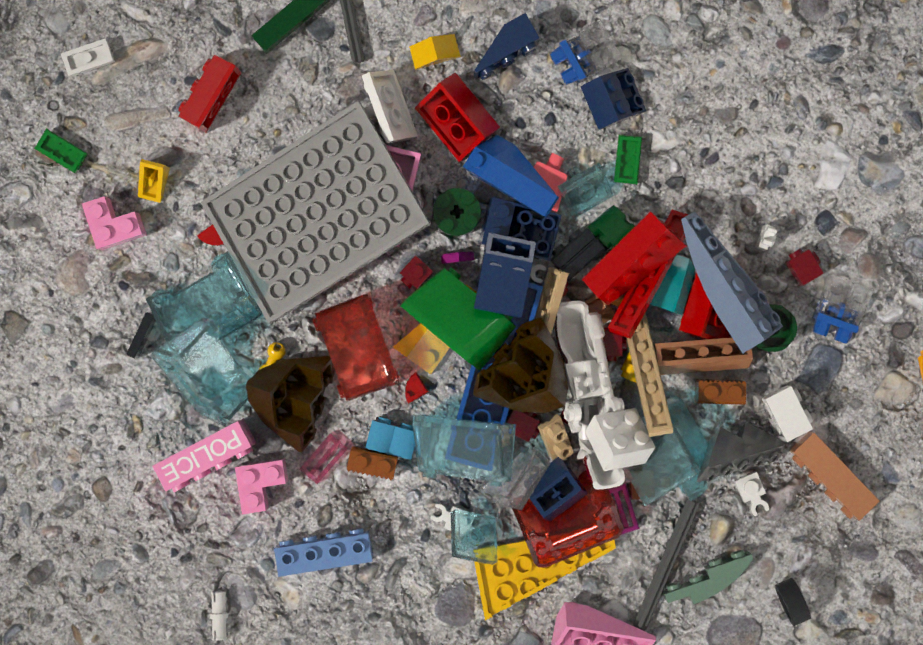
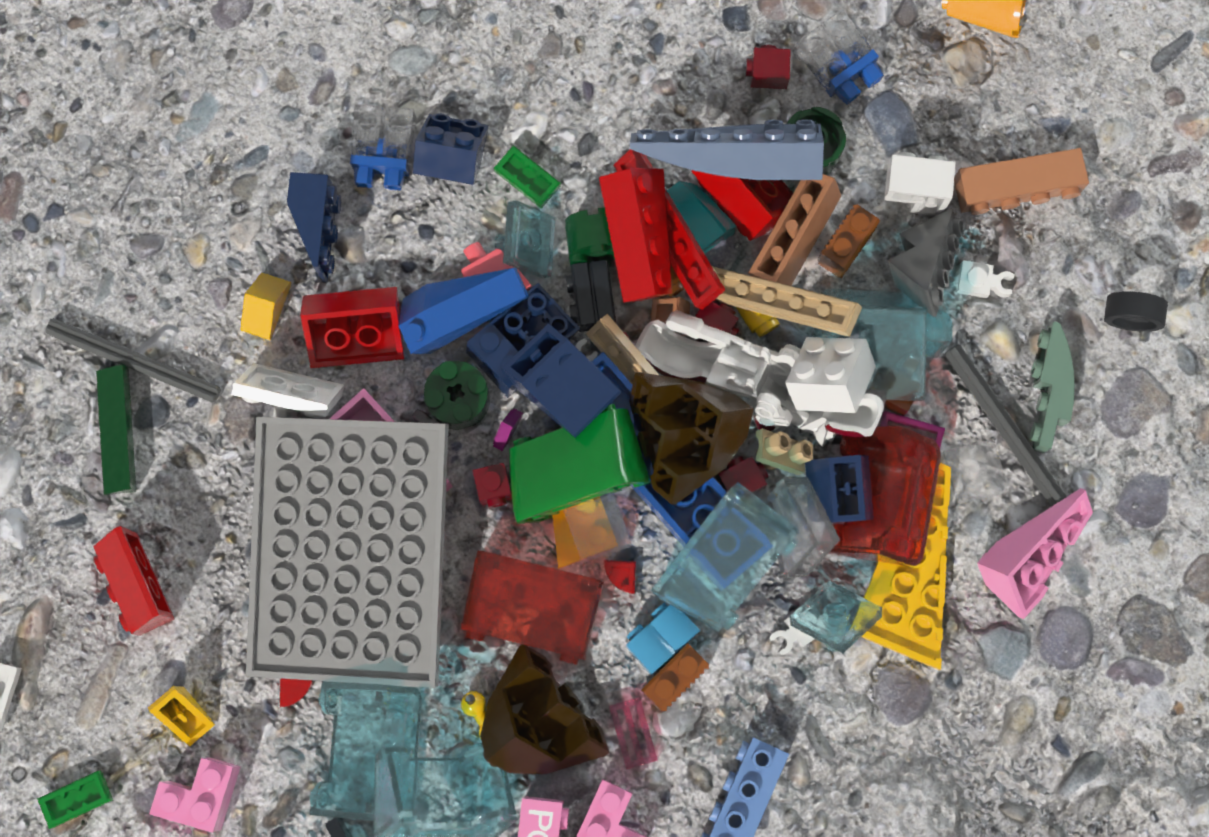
camera: 55 degrees left, 10 degrees down
(766, 237) = (711, 85): white plate -> none

